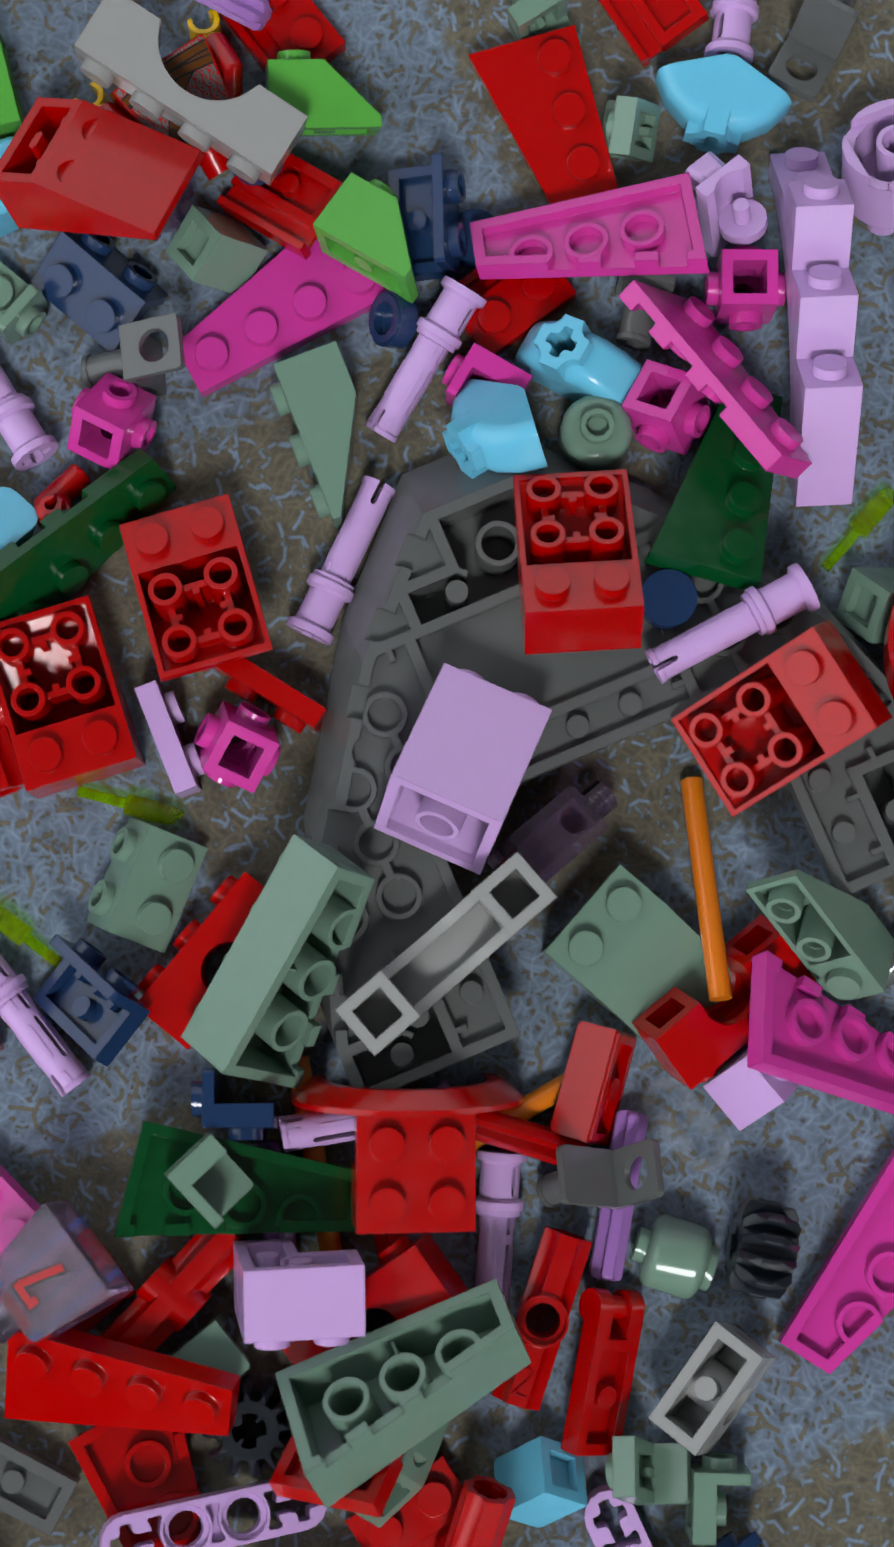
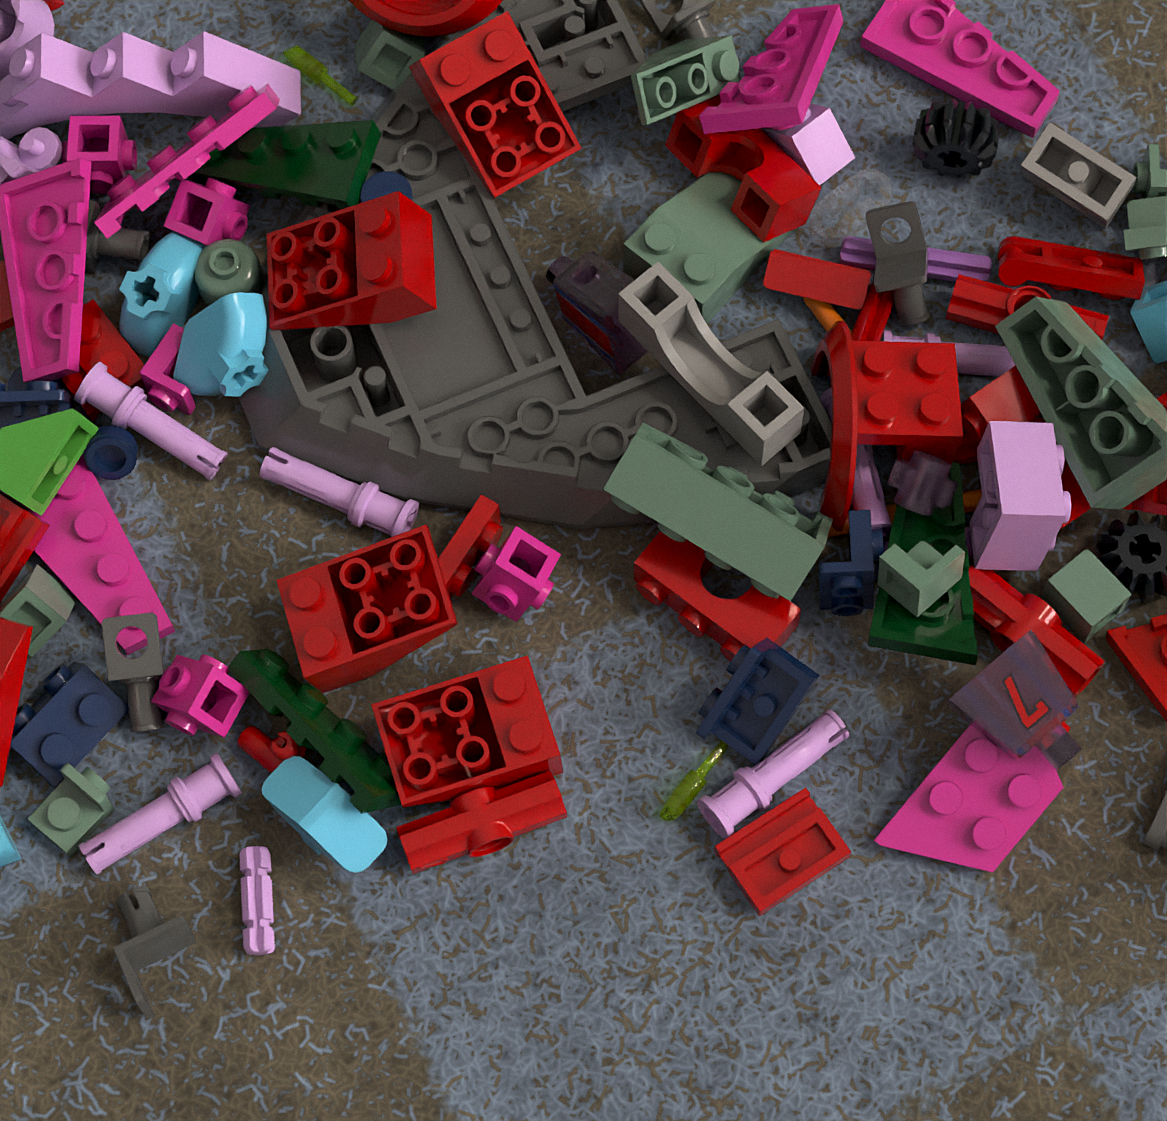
camera: 85 degrees left, 15 degrees down
(115, 1385) = (1114, 664): red wing -> none
(135, 806) = (570, 680): clear neon green piece -> none
(145, 884) = (644, 666): sand green bracket -> none
(163, 716) = (524, 636): lavender plate -> none
(314, 1187) = (922, 483): none -> clear purple gear
(324, 411) = (204, 510): sand green slope -> none
(461, 767) = (542, 354): lavender slope -> none
(675, 1256) = (967, 211): sand green head -> none
(706, 889) = (642, 186): orange bar -> none
(757, 612) = (401, 124): lavender pin -> none

